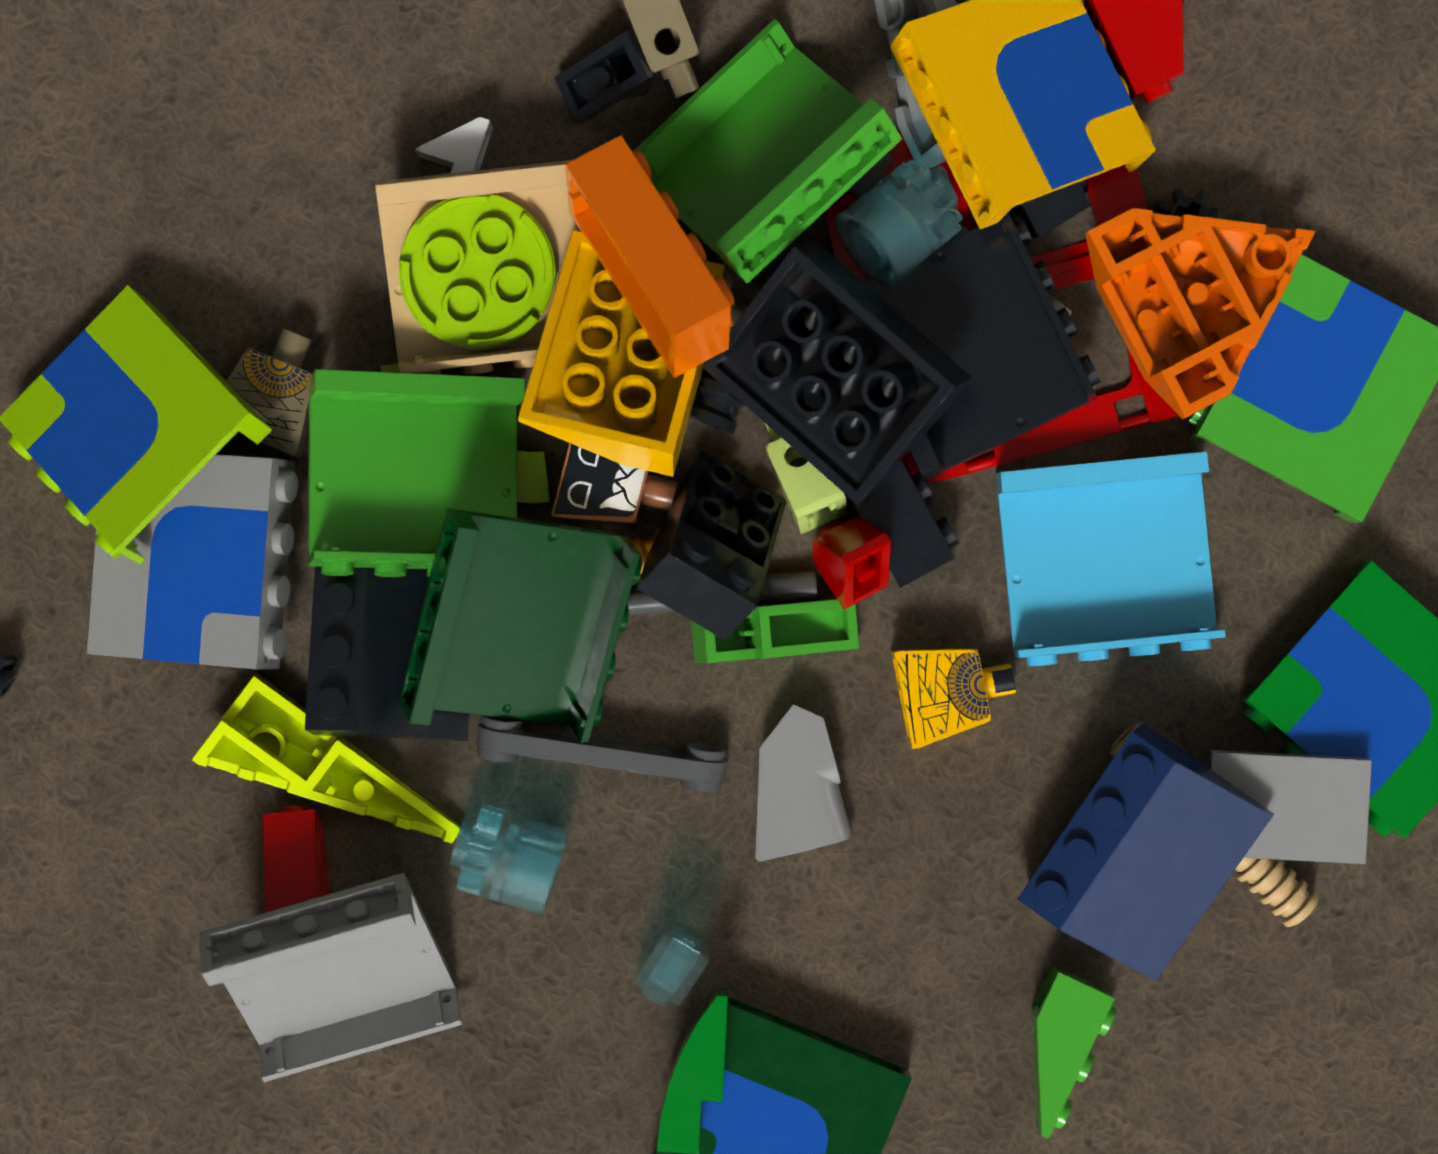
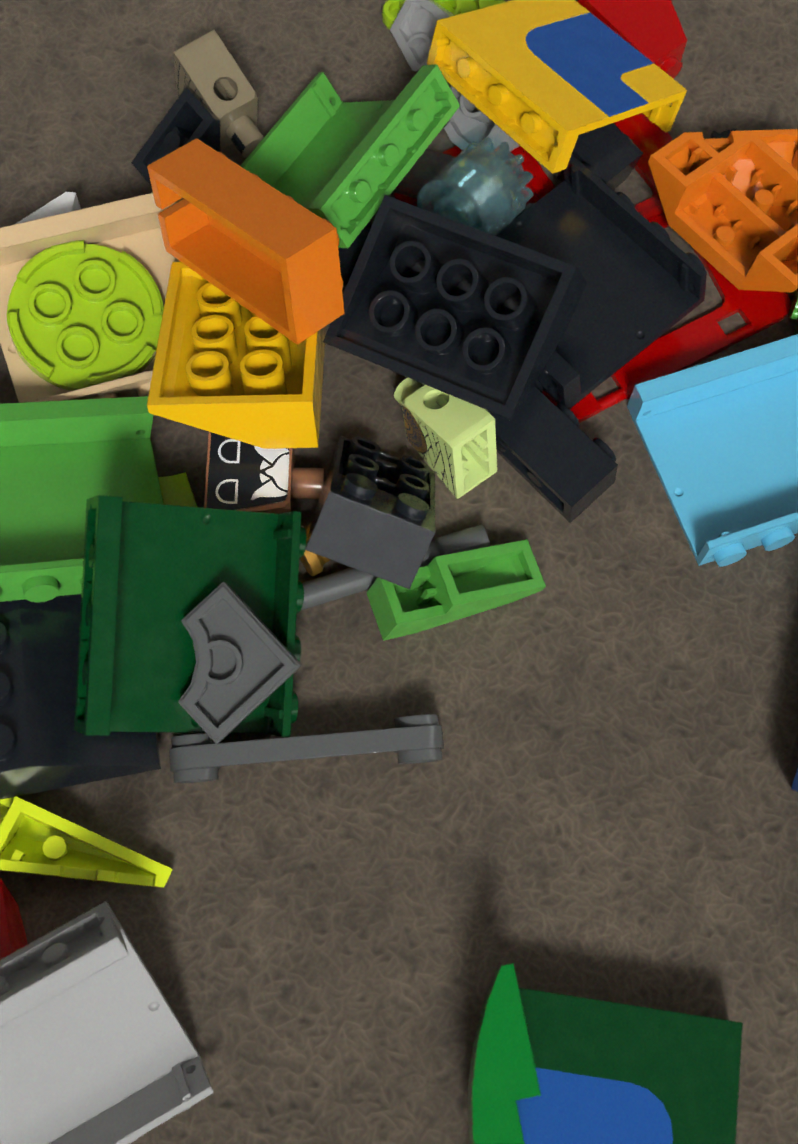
camera: 15 degrees left, 20 degrees down
(509, 858) = (229, 882): clear light blue gear -> none
(552, 672) = (235, 662): none -> dark grey tile
(672, 965) = (439, 960): clear light blue slope -> none
(716, 406) = (347, 393): black wheel -> none
(798, 789) = (524, 736): light grey panel -> none
(852, 559) = (518, 493): red slope -> none
(946, 691) = (643, 604): yellow torso -> none

